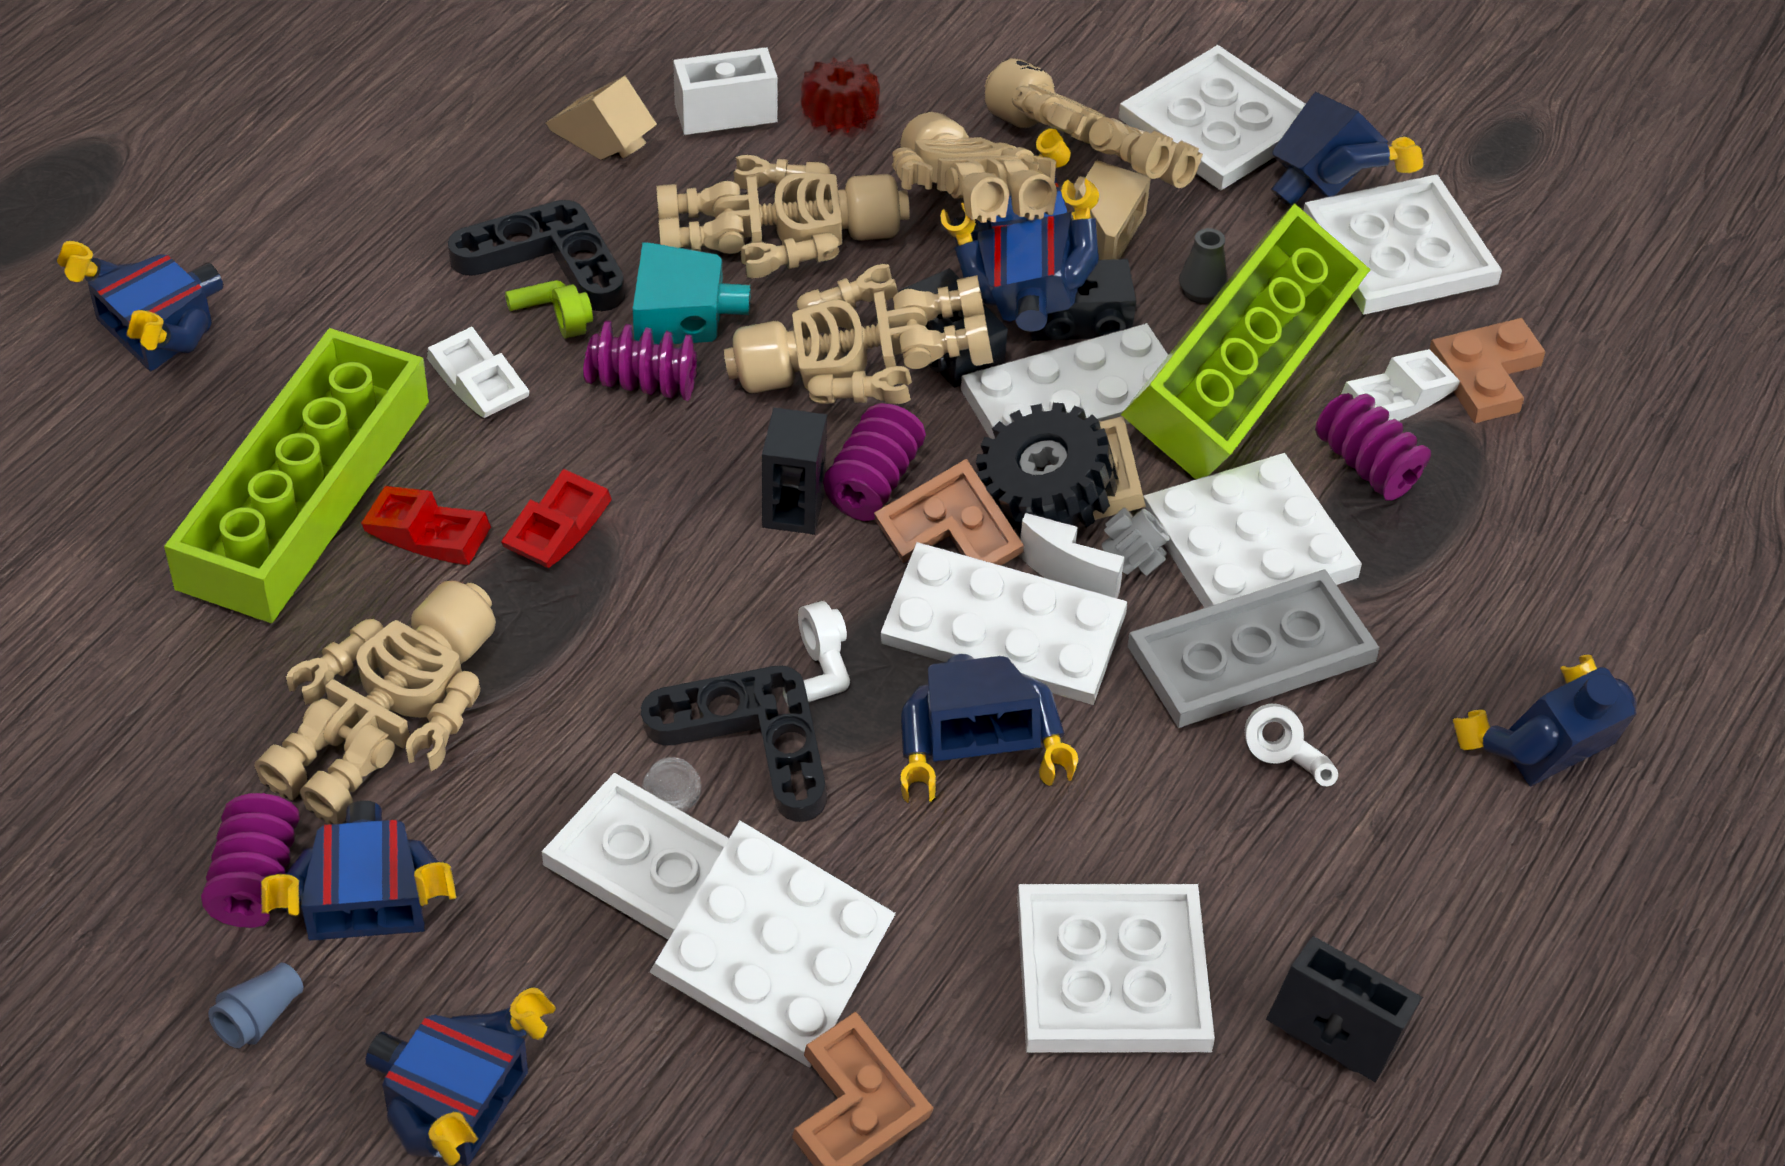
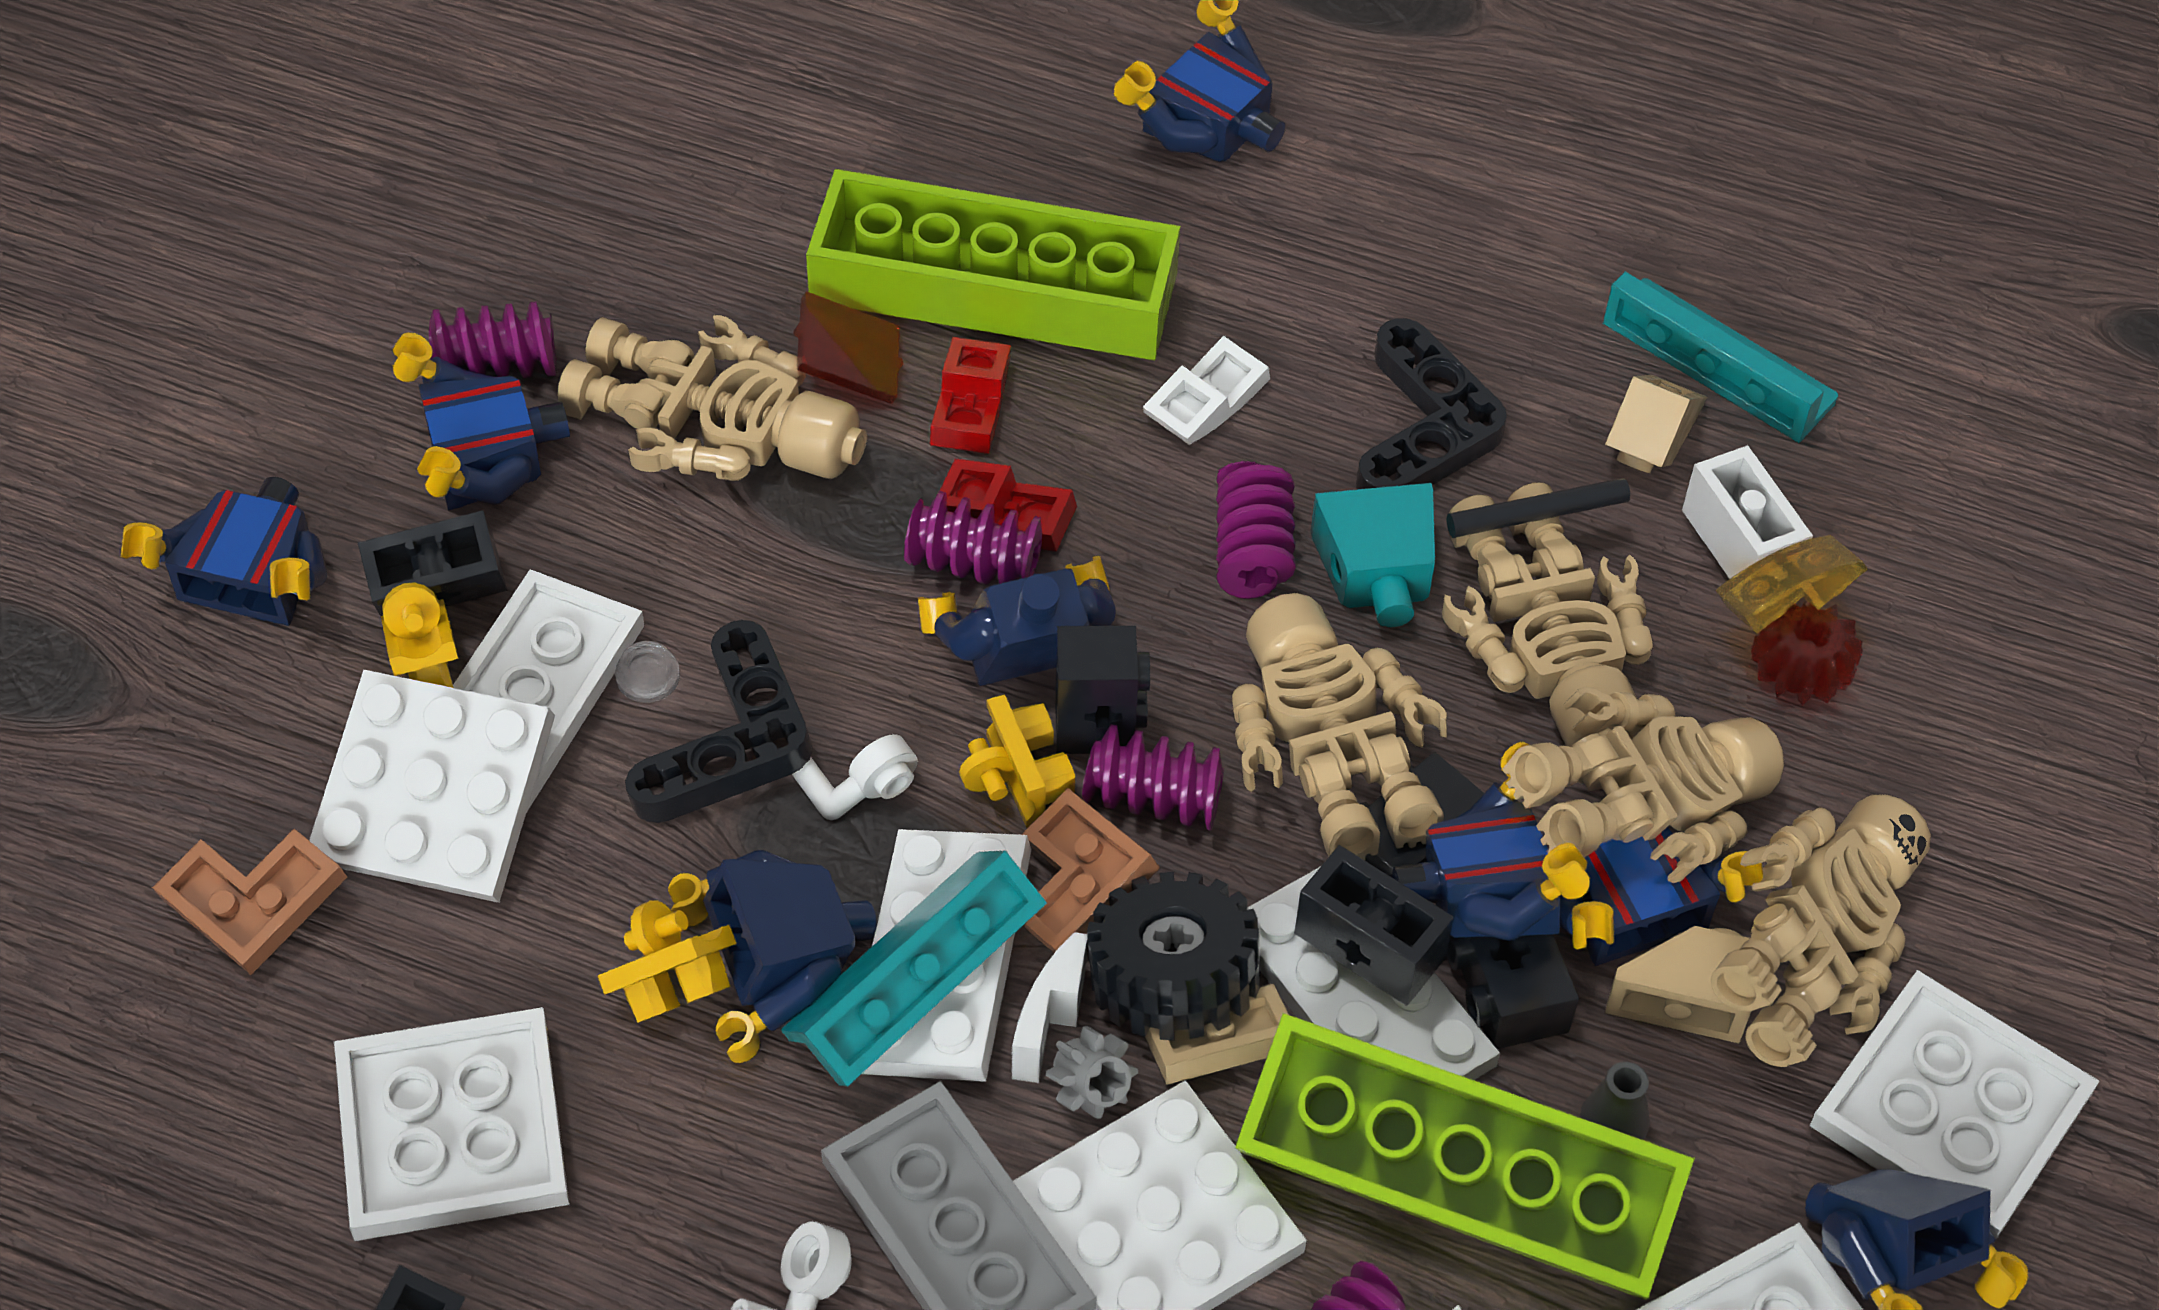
camera: 80 degrees right, 5 degrees up
(253, 1006) = (326, 389): sand blue cone -> none
(352, 592) = (848, 348): none -> clear red piece
(526, 918) = (449, 557): none -> black brick
(545, 81) = (1717, 356): none -> teal panel
(570, 307) = (1325, 446): lime plate -> none
(606, 532) = (972, 541): none -> magenta piece
(613, 929) = (418, 634): none -> yellow hips
(685, 190) = (1538, 507): none -> black bar
(711, 511) = (1017, 621): none -> dark blue torso
(801, 70) = (1807, 569): none -> clear yellow slope
(833, 546) = (1010, 760): none -> yellow hips
(998, 781) = (658, 936): none -> yellow hips
(1033, 618) = (916, 965): none -> teal panel
(1060, 340) = (1373, 925): none -> black brick

